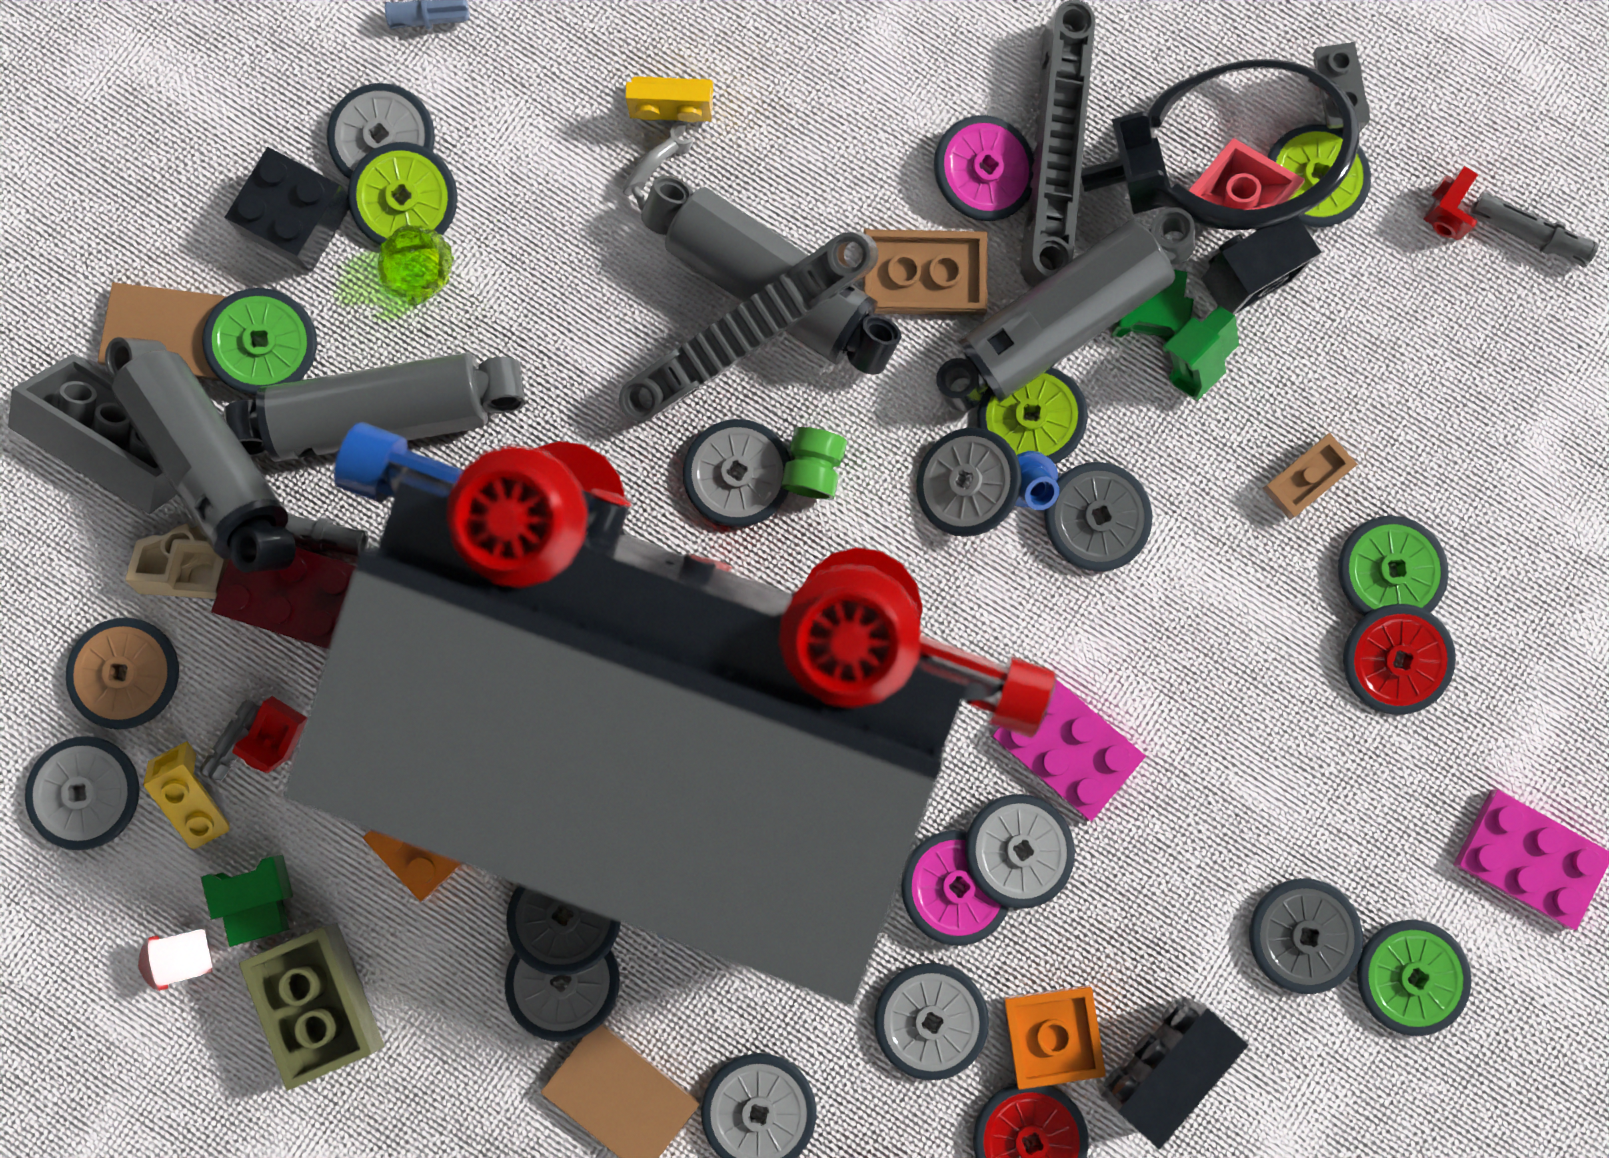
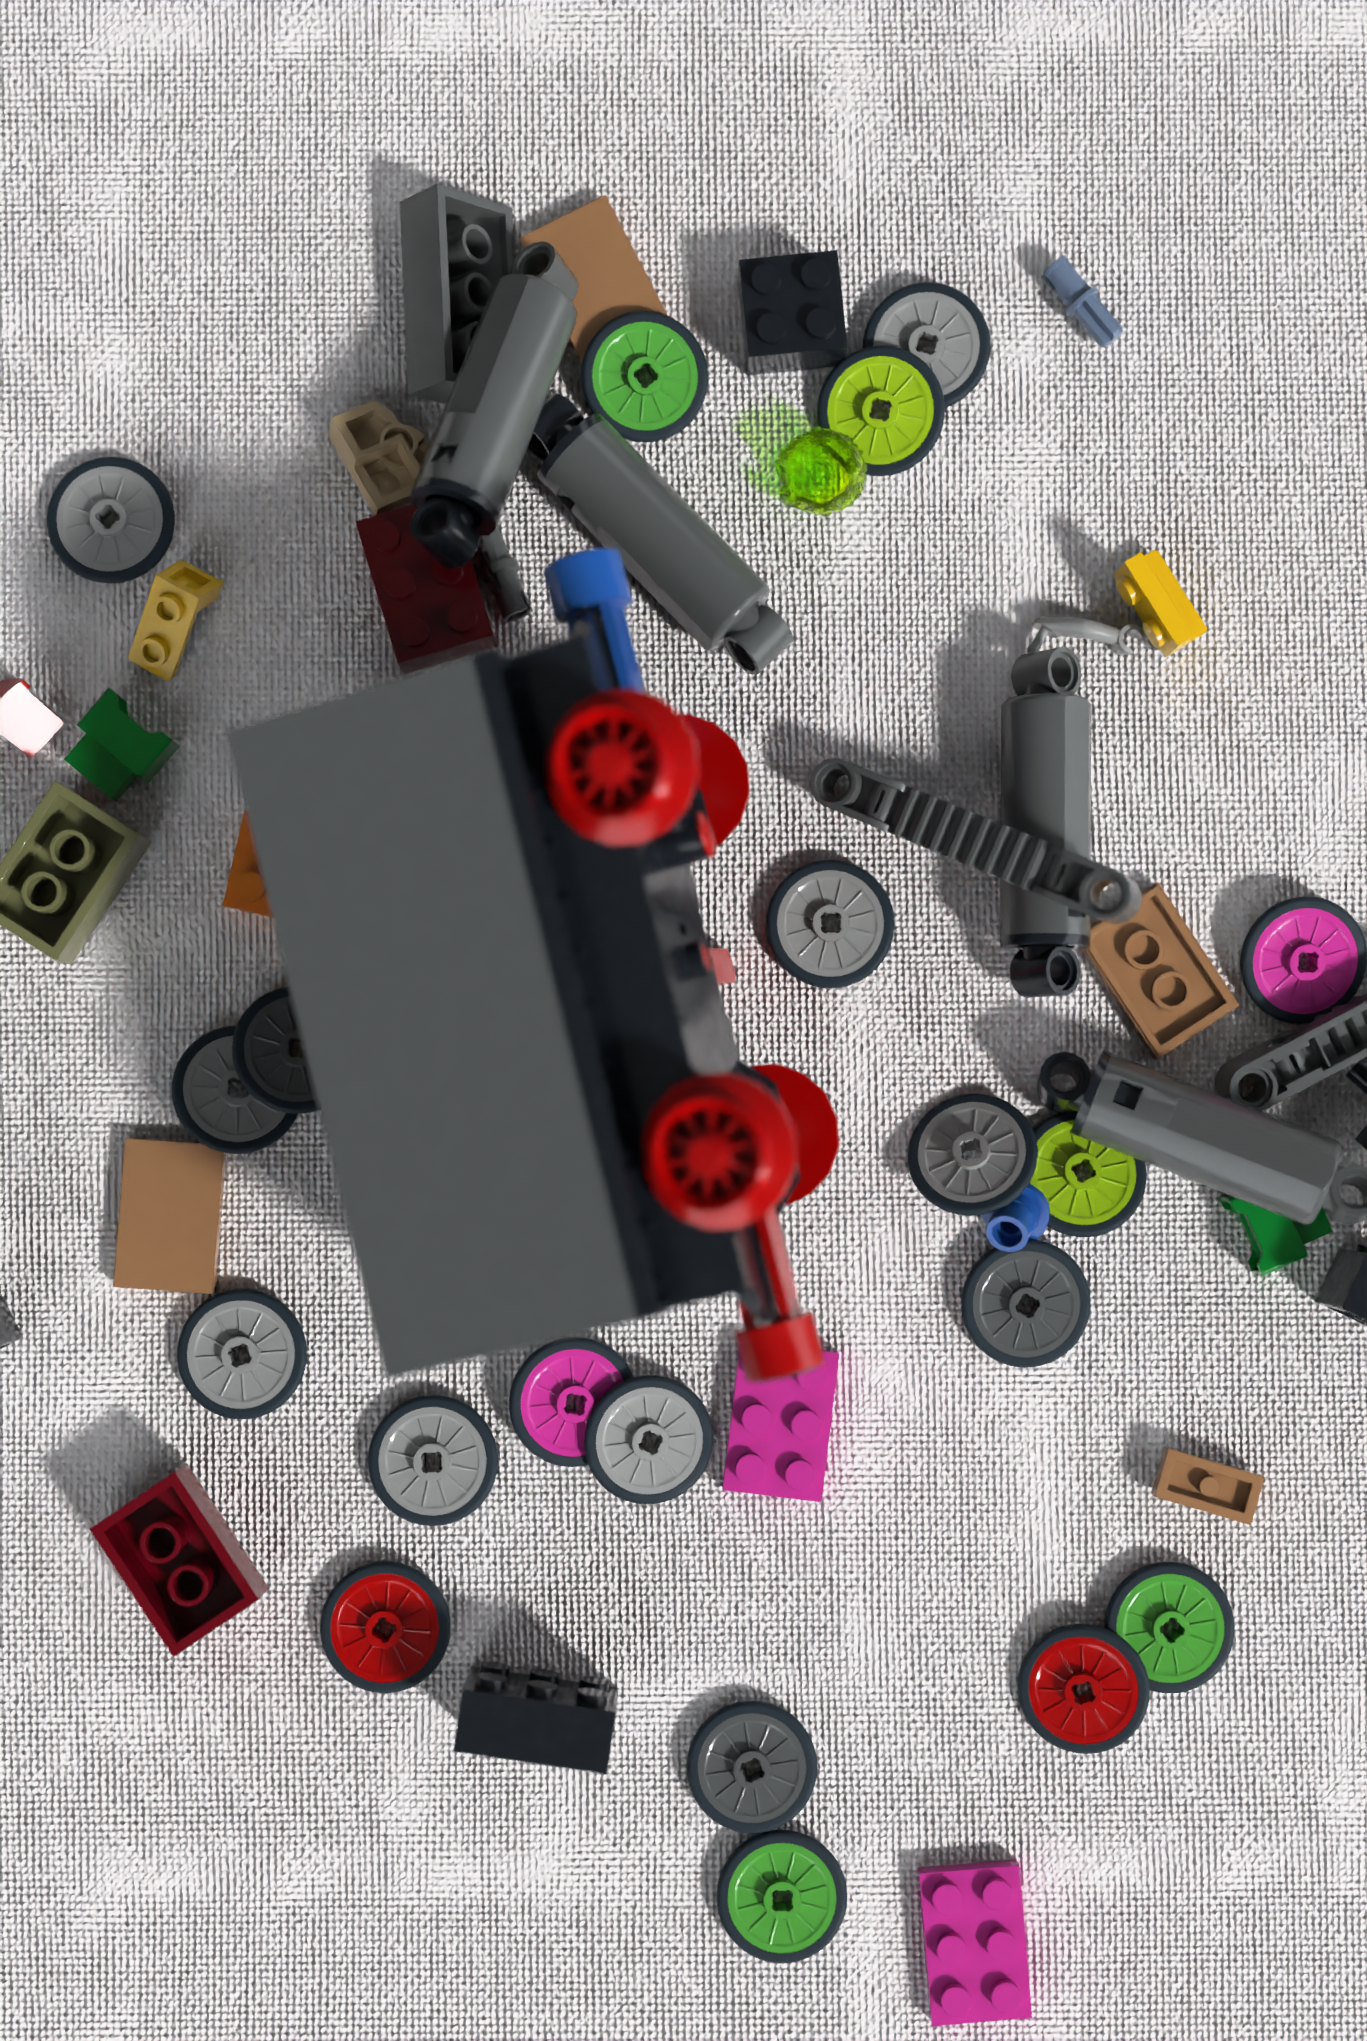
camera: 55 degrees right, 5 degrees up
(95, 668) = (230, 448): medium nougat wheel -> none
(218, 764) = (252, 624): dark grey axle -> none
(271, 736) = (280, 658): red bracket -> none
(815, 457) = (884, 993): bright green wheel -> none
(1054, 1037) = (495, 1586): orange plate -> none
(1201, 351) = (1258, 1297): green piece -> none

